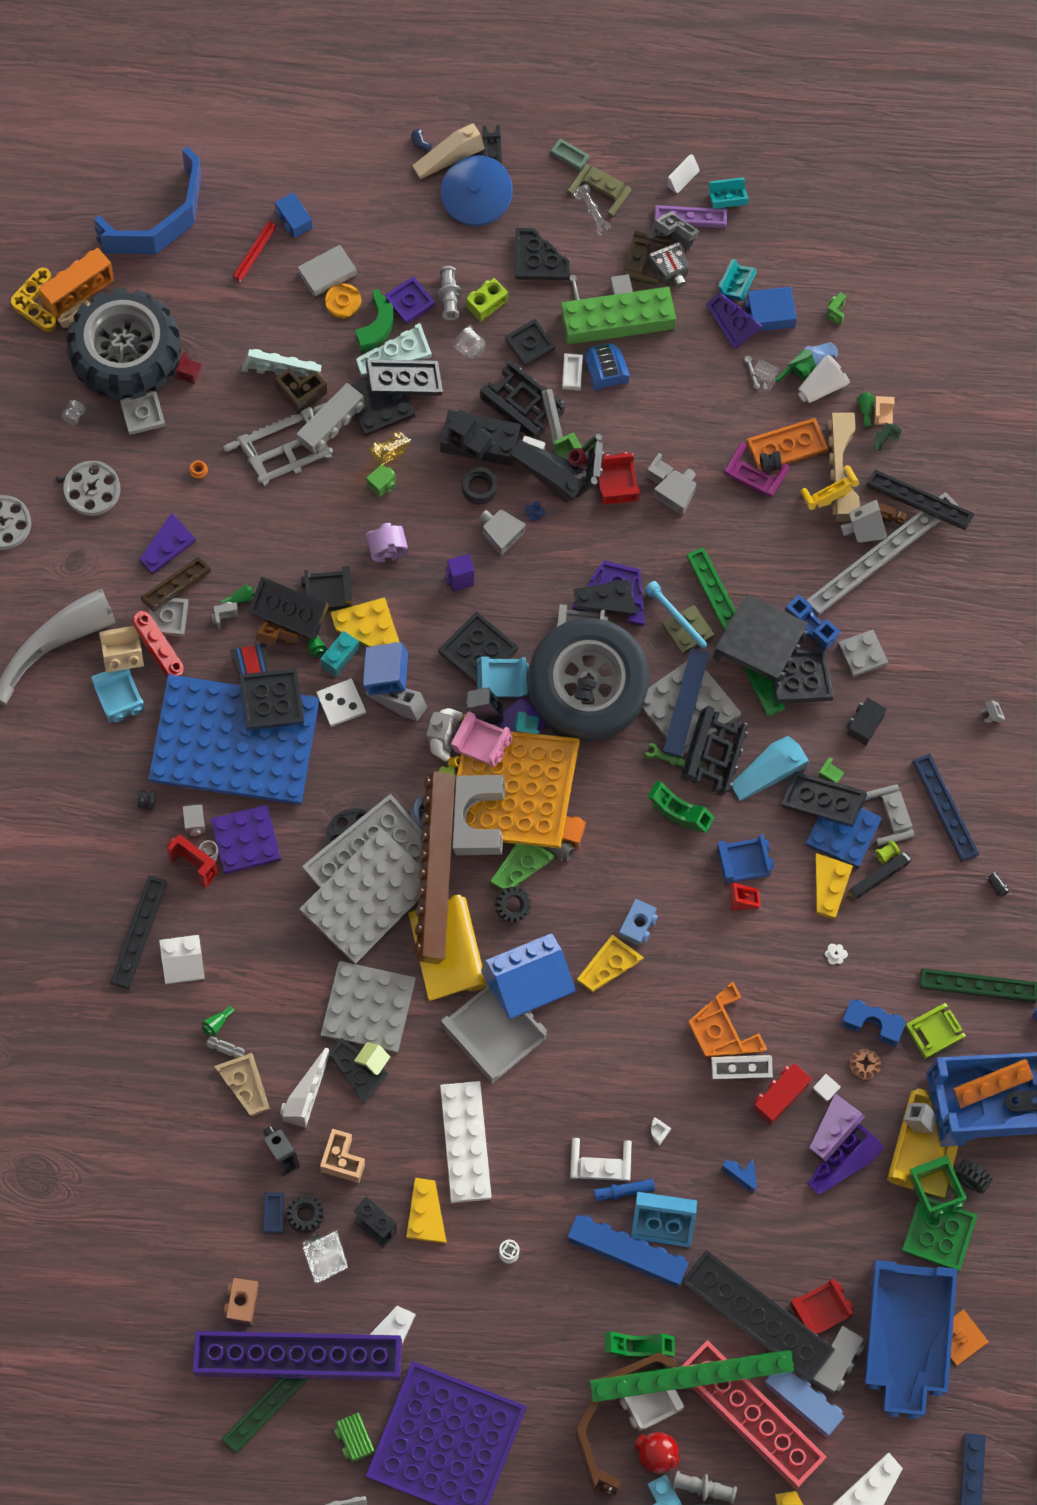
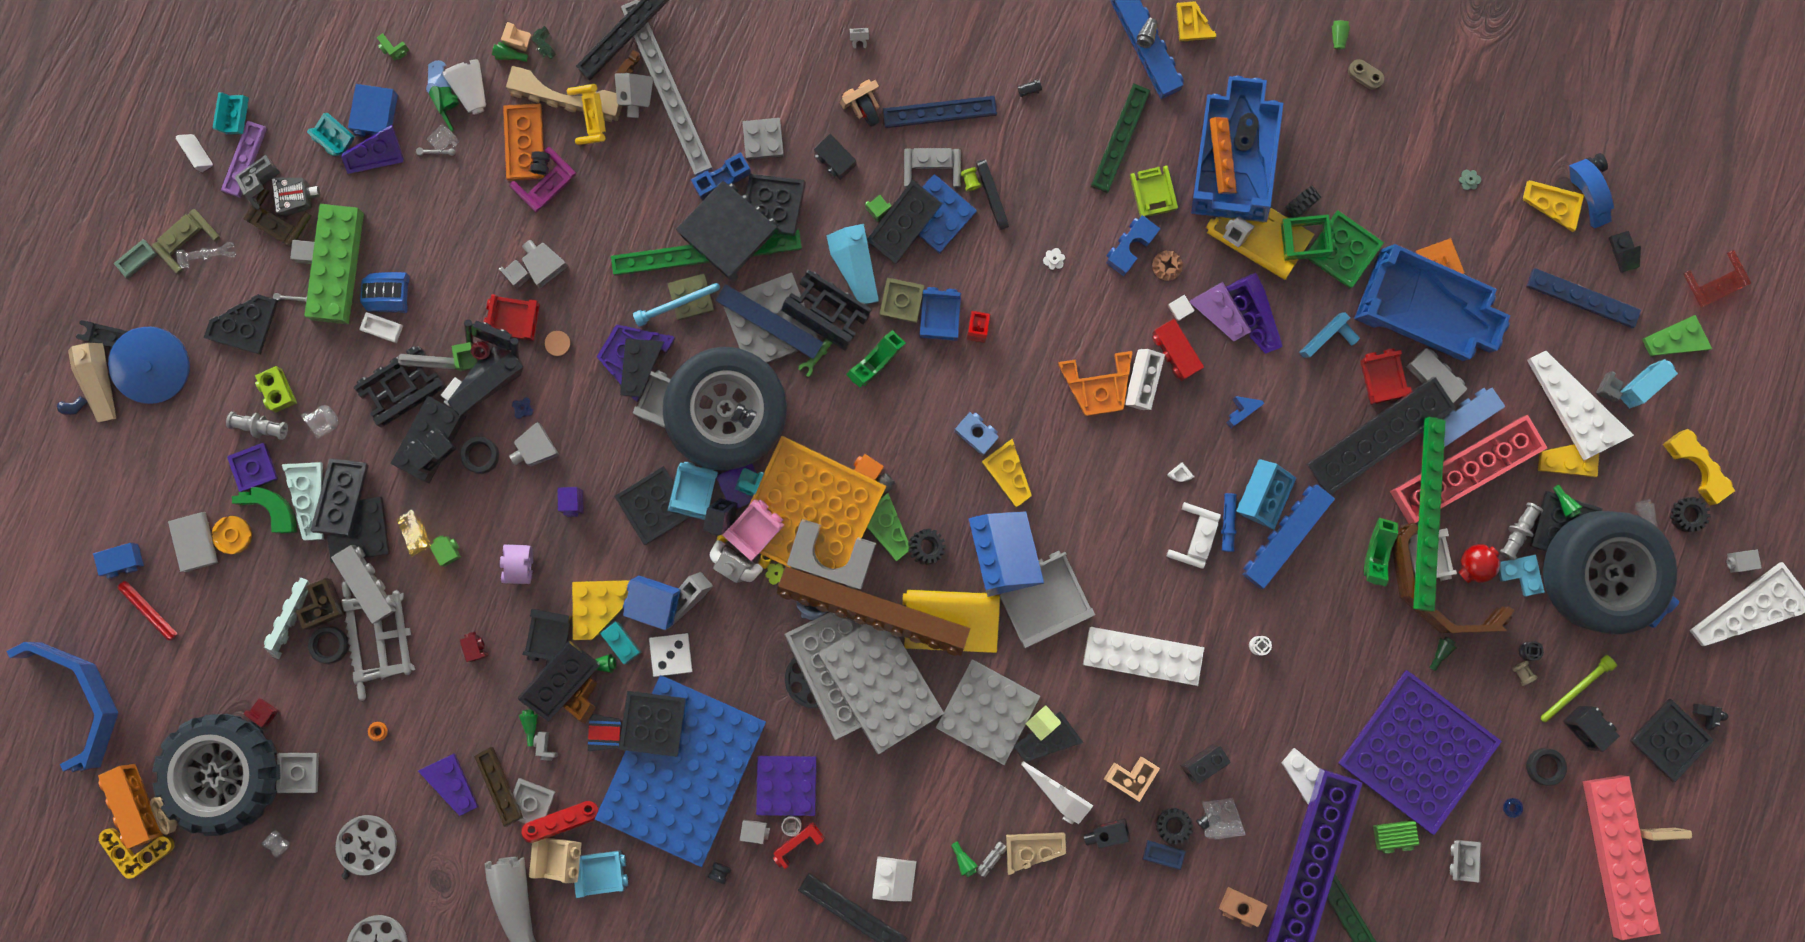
camera: 75 degrees left, 15 degrees up
(265, 393) = (313, 640): none -> black tyre
(298, 528) = (473, 647): none -> dark red brick
(425, 1213) = (1201, 712): yellow wing -> none
(530, 342) = (337, 360): black plate -> none
(558, 1440) = (1444, 649): none -> dark green cone
(605, 524) = (557, 343): none -> nougat piece
(746, 819) = (901, 300): none -> olive plate
(830, 884) = (985, 241): yellow wing -> none
(860, 1246) = (1337, 324): none -> dark azure piece
(929, 729) = (863, 101): none -> light nougat plate

